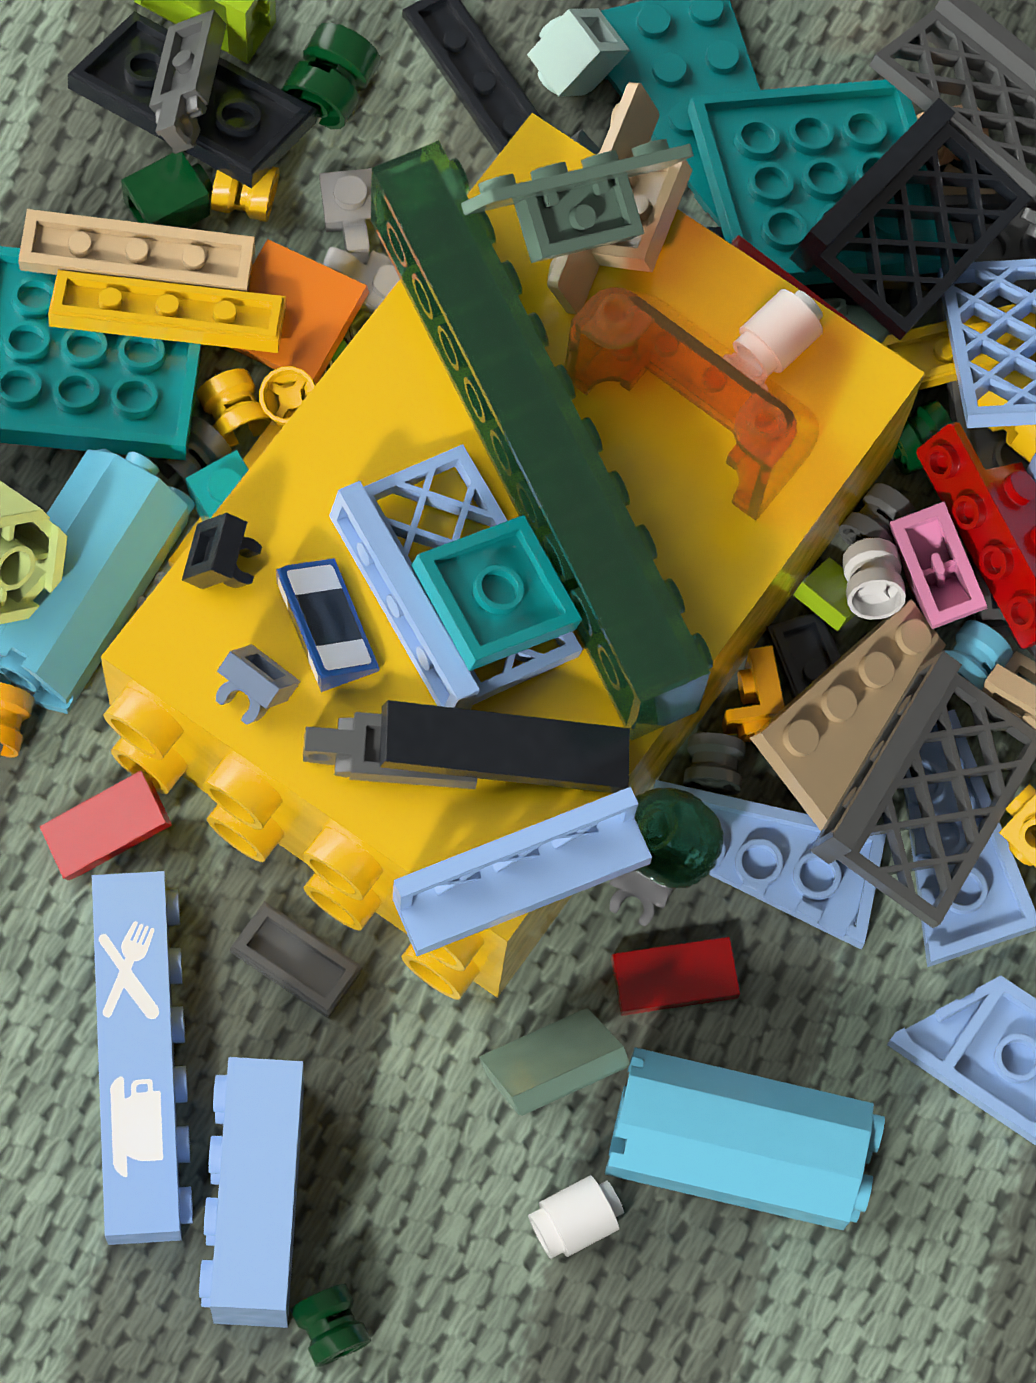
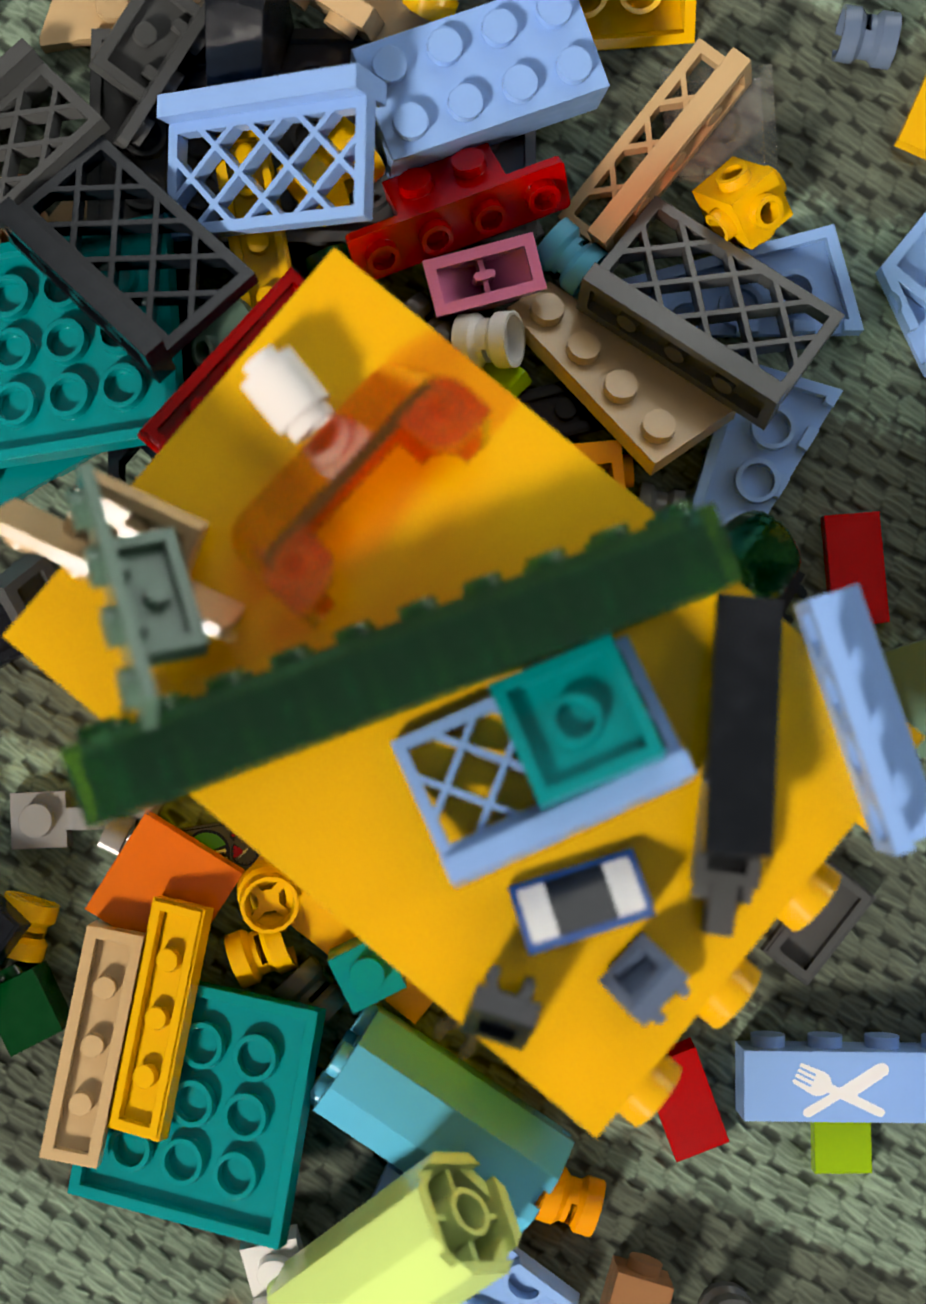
camera: 80 degrees left, 15 degrees up
(65, 995) = (841, 1148): none -> lime tile

